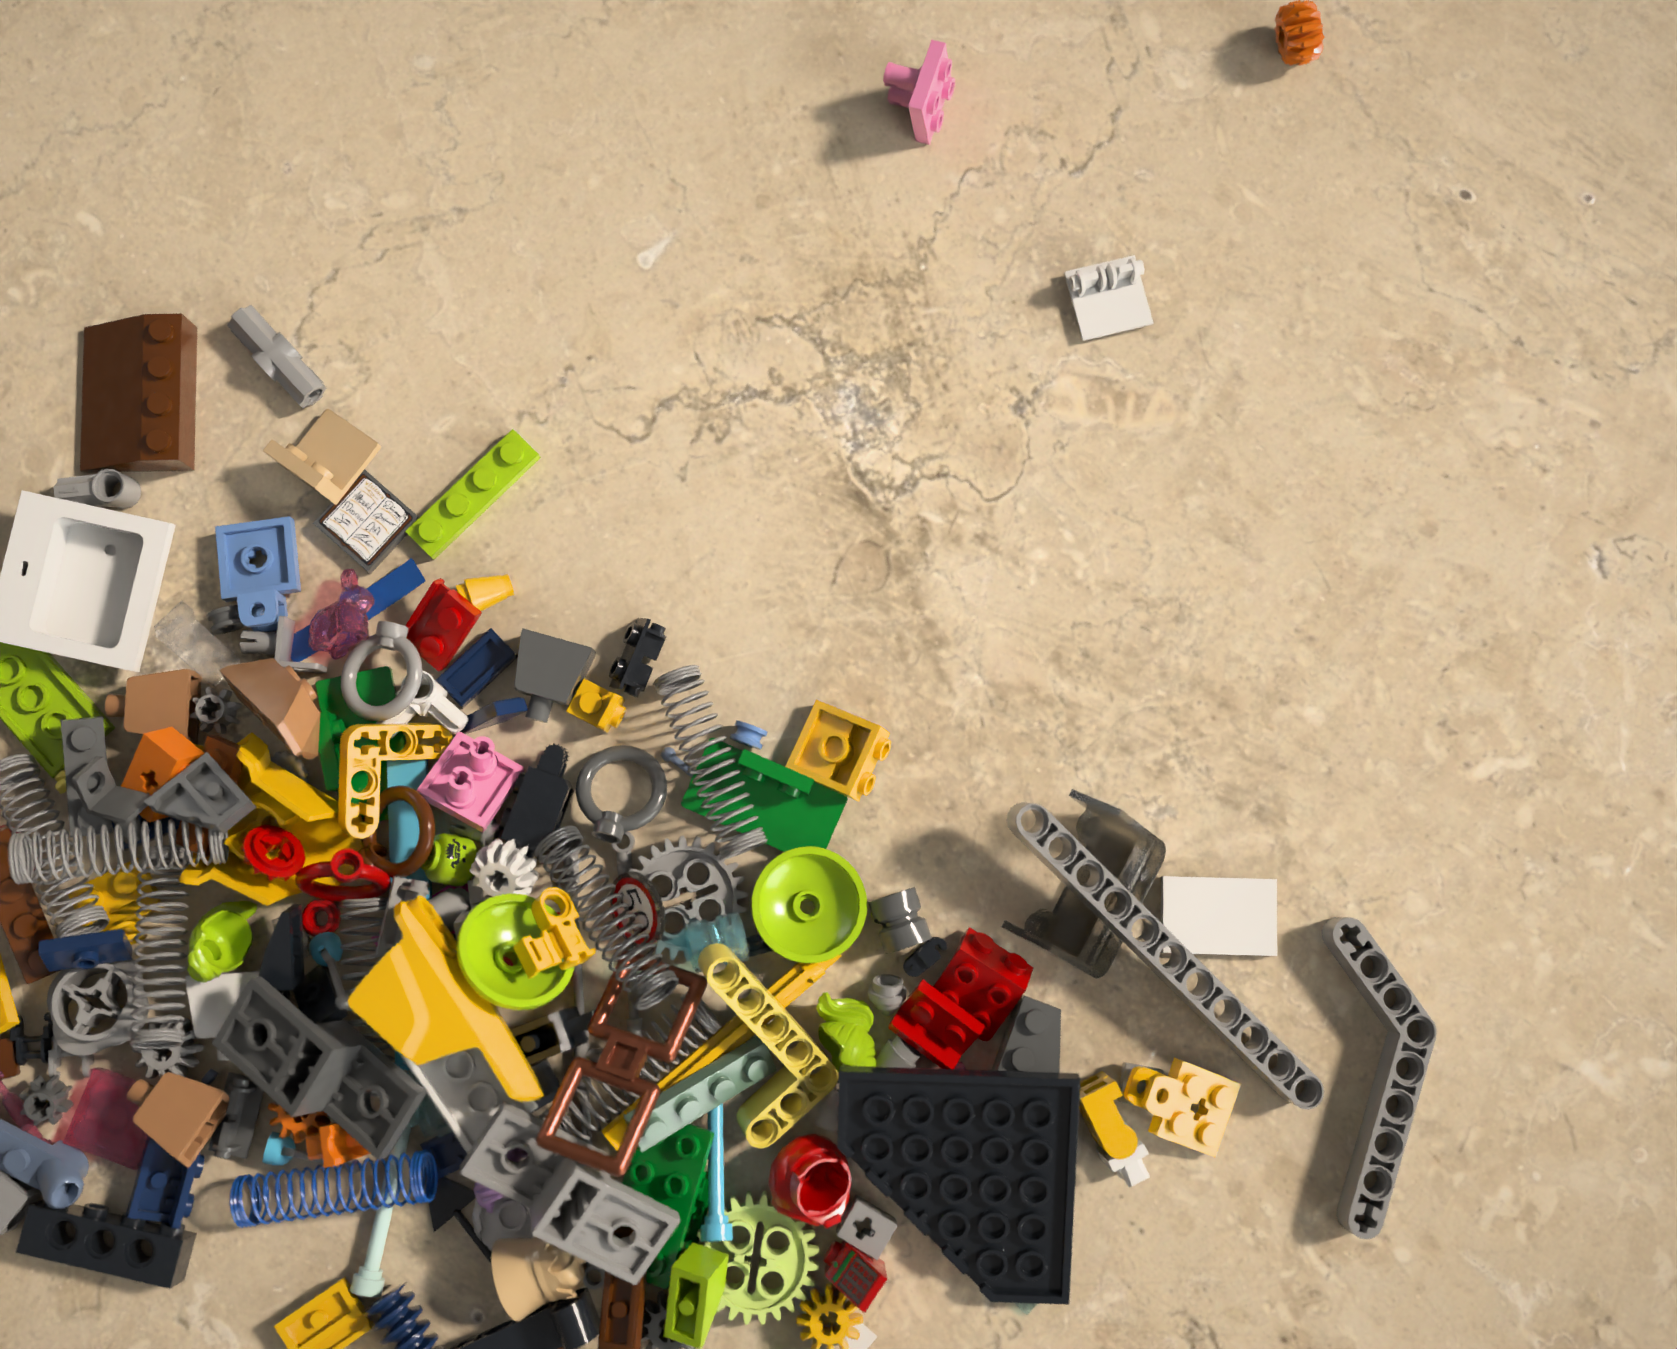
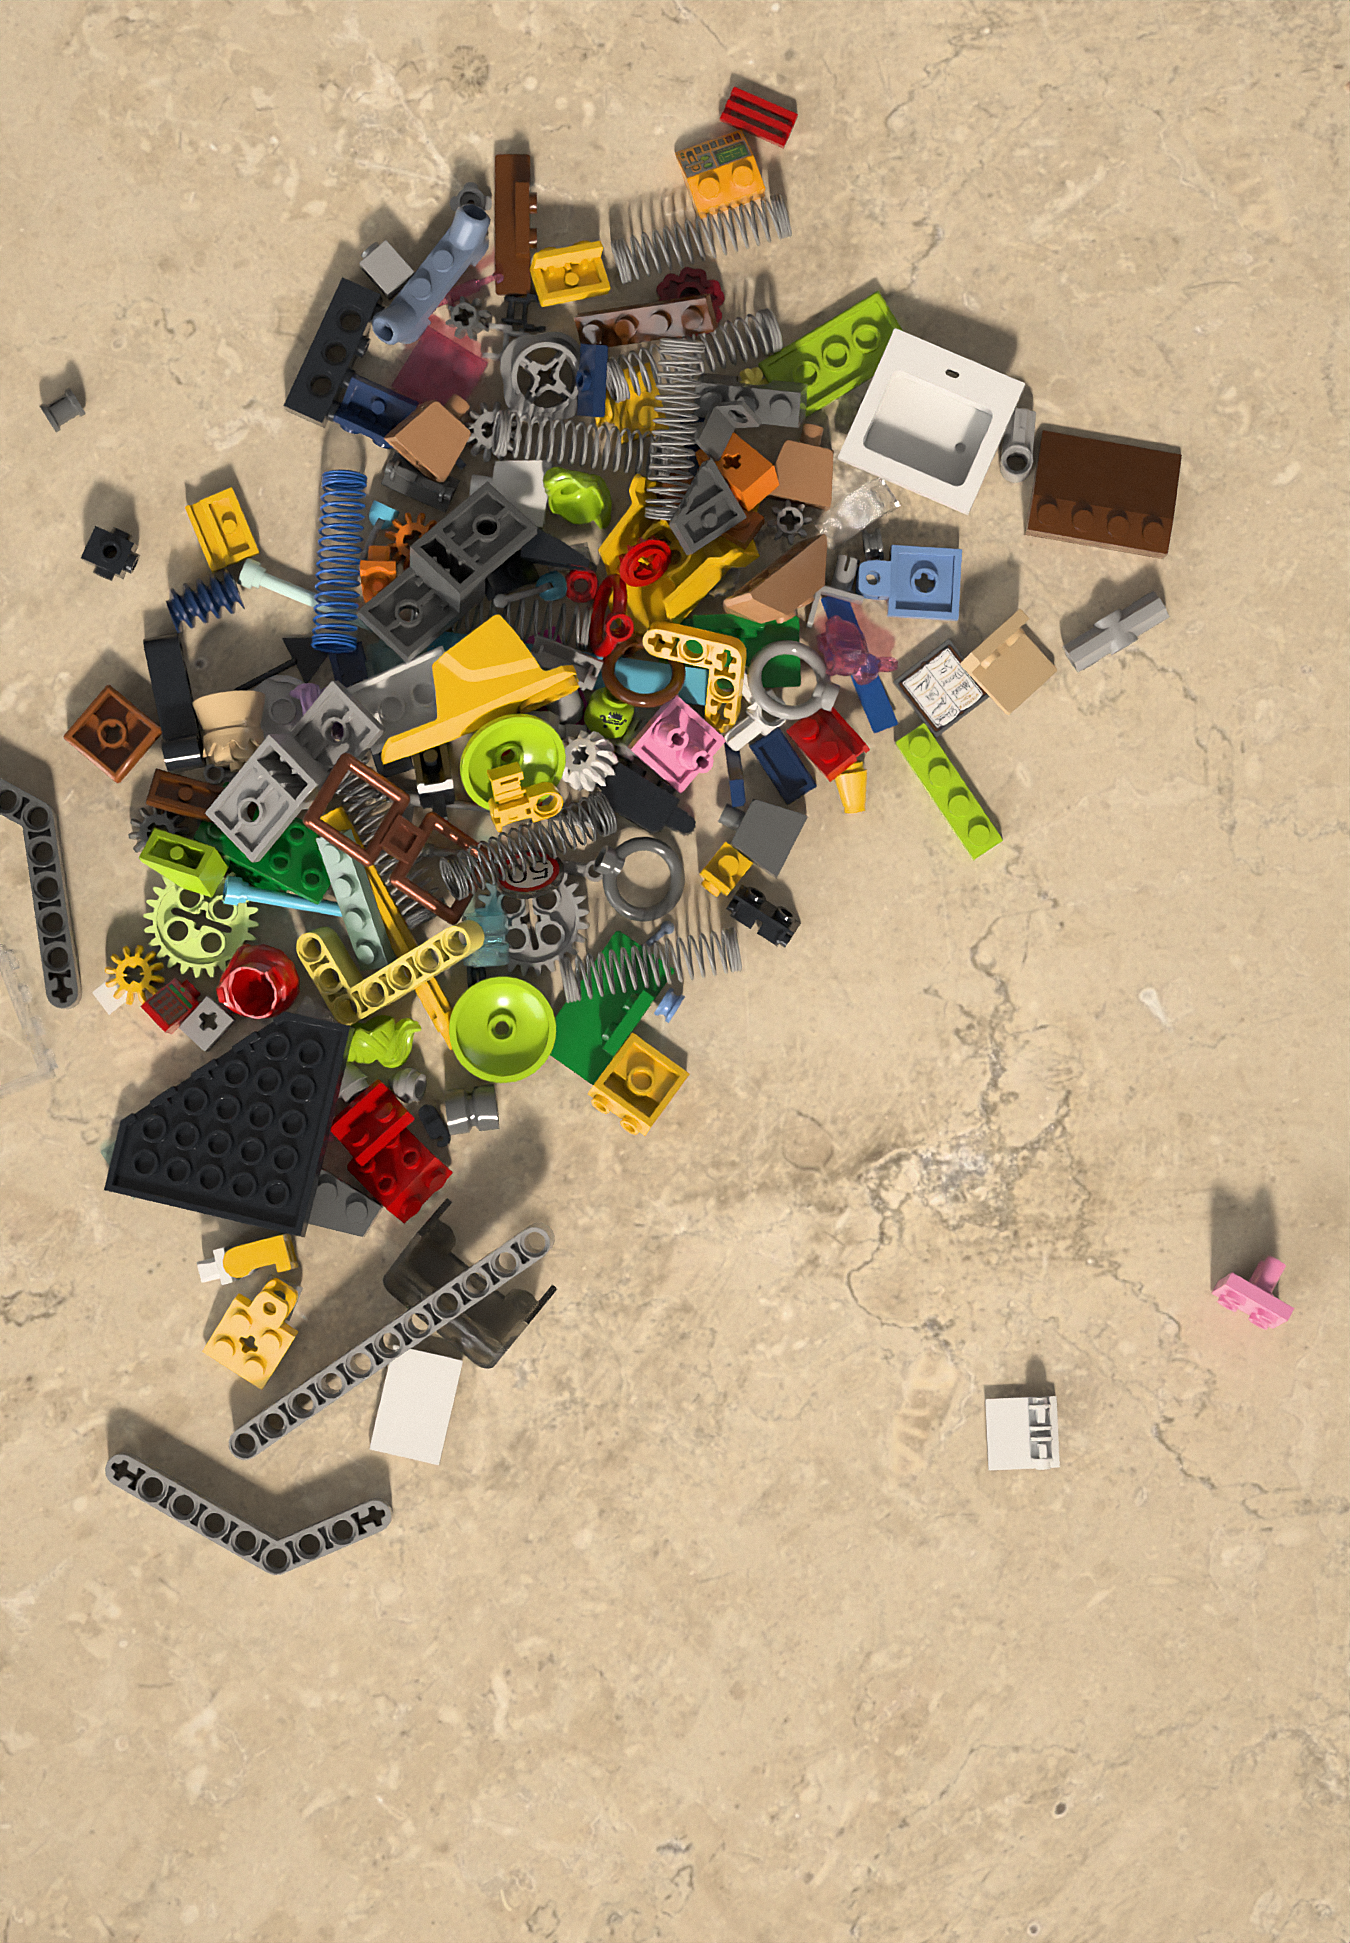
camera: 105 degrees right, 5 degrees up
(1299, 32) = (1248, 1675): orange gear -> none

